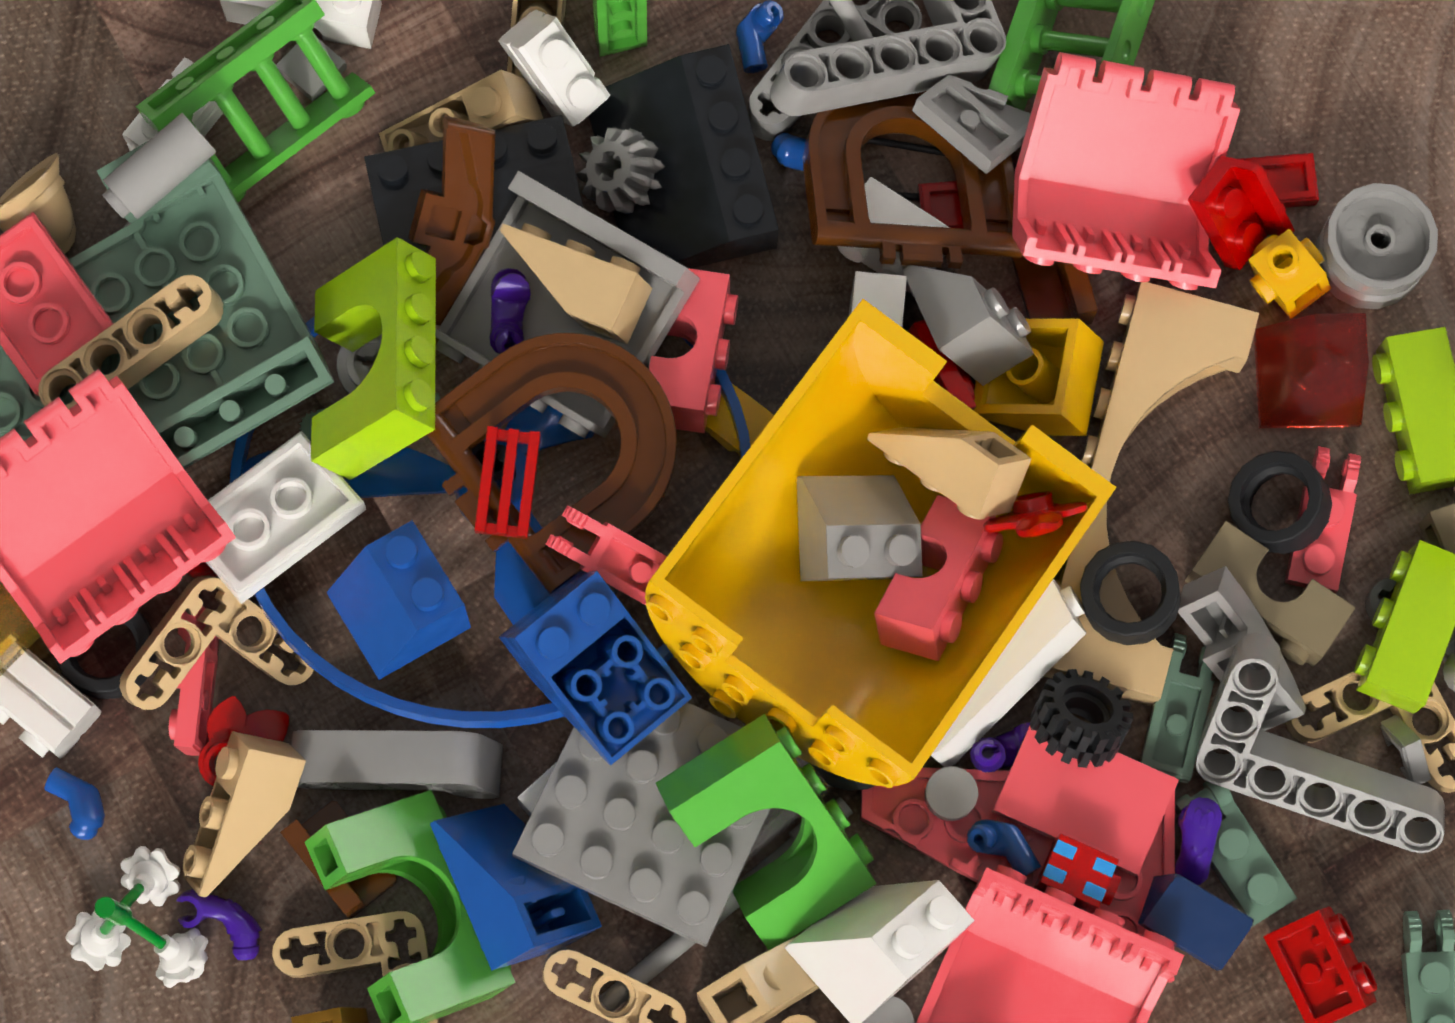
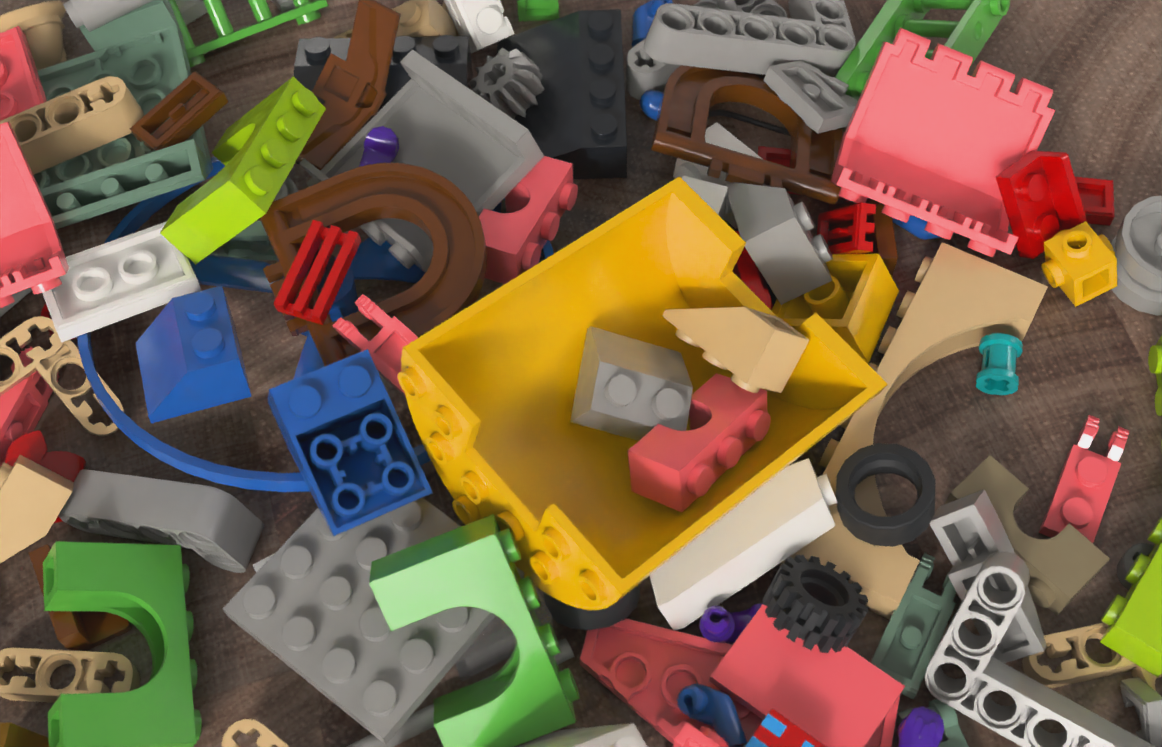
camera: 20 degrees right, 15 degrees down
(286, 305) = (183, 118): none -> reddish brown tile
(510, 903) = (212, 663): blue slope -> none
(590, 290) = (443, 139): tan slope -> none
(951, 793) = (672, 653): light grey tile -> none
(1034, 515) = (803, 396): red plate -> none
(1052, 291) = (855, 212): none -> red tile
(1220, 406) = (999, 364): none -> teal bush
(1261, 470) = (1043, 420): black tyre -> none
(1312, 371) = (1092, 350): clear red slope -> none

